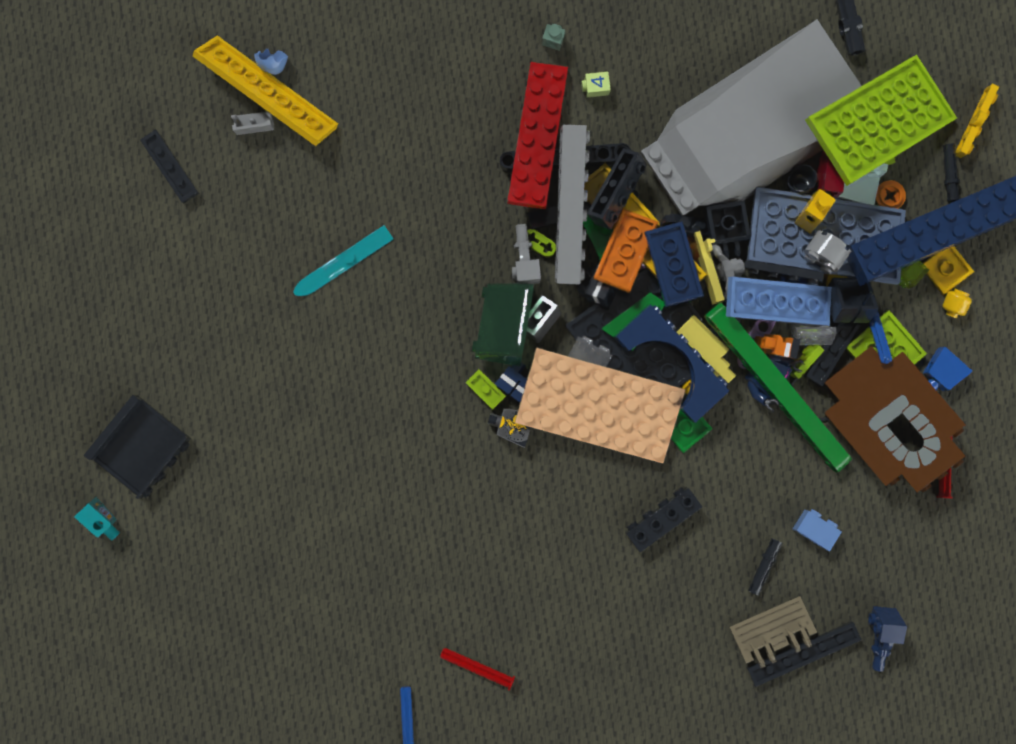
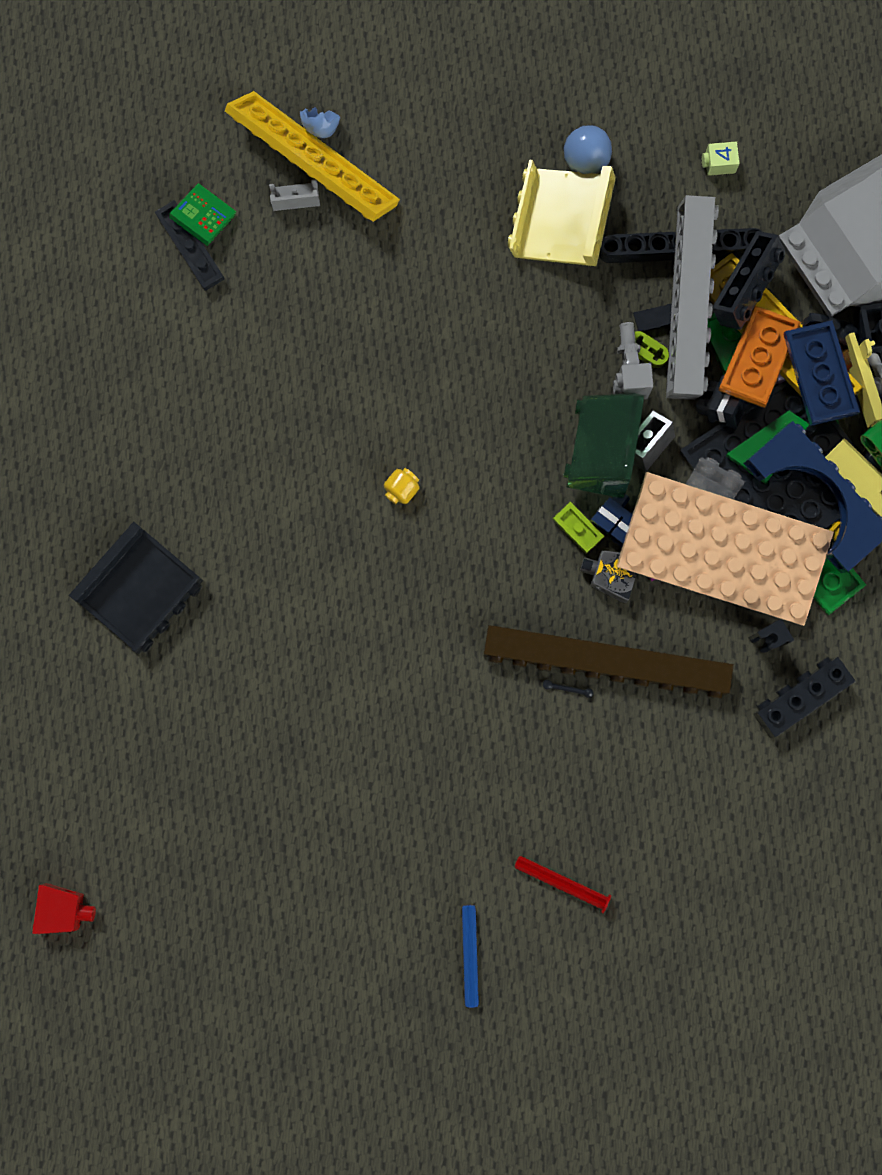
camera: 10 degrees right, 5 degrees down
(88, 700) = (60, 910): none -> red torso
(92, 515) = (73, 672): teal torso -> none
(178, 141) = (202, 214): none -> green tile
(343, 262) = (401, 367): teal piece -> none
(345, 359) = (401, 486): none -> yellow head
(464, 513) = (547, 684): none -> black hinge
(468, 135) = (561, 215): none -> light yellow panel
(488, 81) = (587, 150): none -> medium blue piece
(509, 494) = (608, 660): none -> dark brown brick
(537, 135) = (649, 217): red plate -> none
(553, 36) = (668, 95): sand green brick -> none
(638, 472) = (774, 634): none -> black hinge

